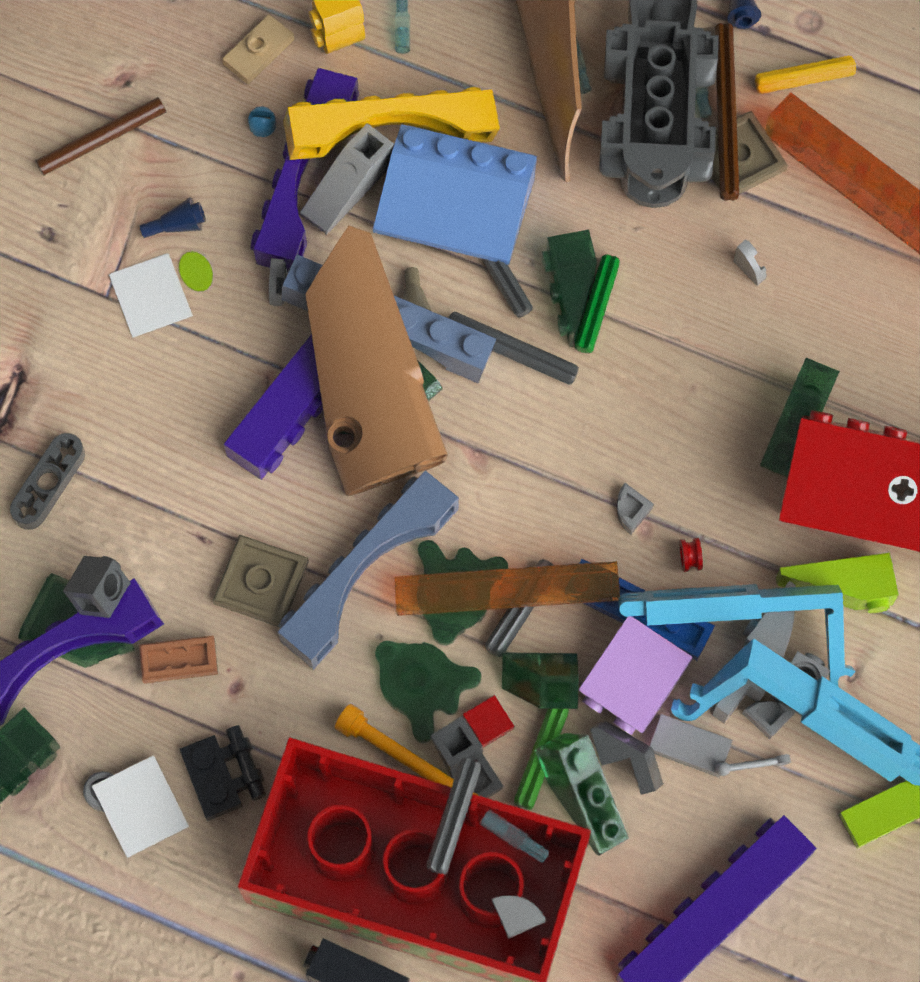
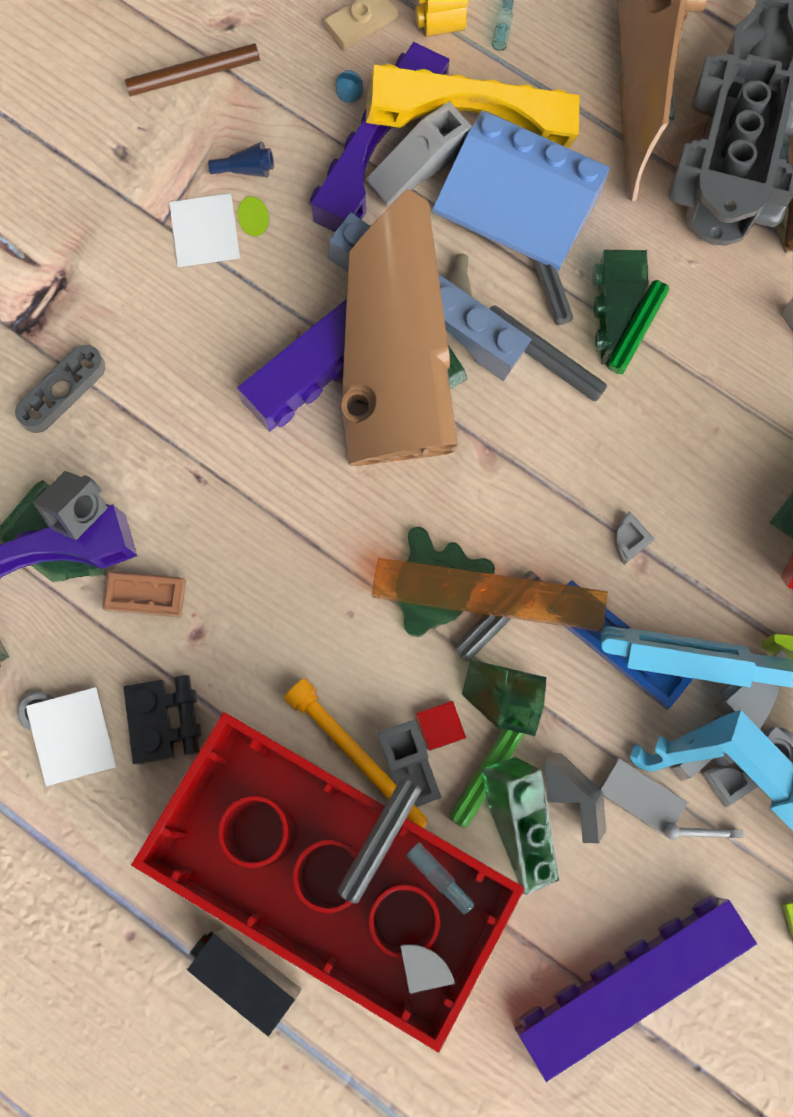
camera: 10 degrees right, 5 degrees up
(260, 580) = (245, 532): dark tan tile -> none
(276, 279) = (329, 227): light grey tile -> none
(417, 514) = (415, 498): sand blue arch -> none
(422, 681) = (382, 670): clear green tile -> none
(634, 676) = (601, 715): lavender brick -> none
(690, 554) = (682, 599): red bush -> none

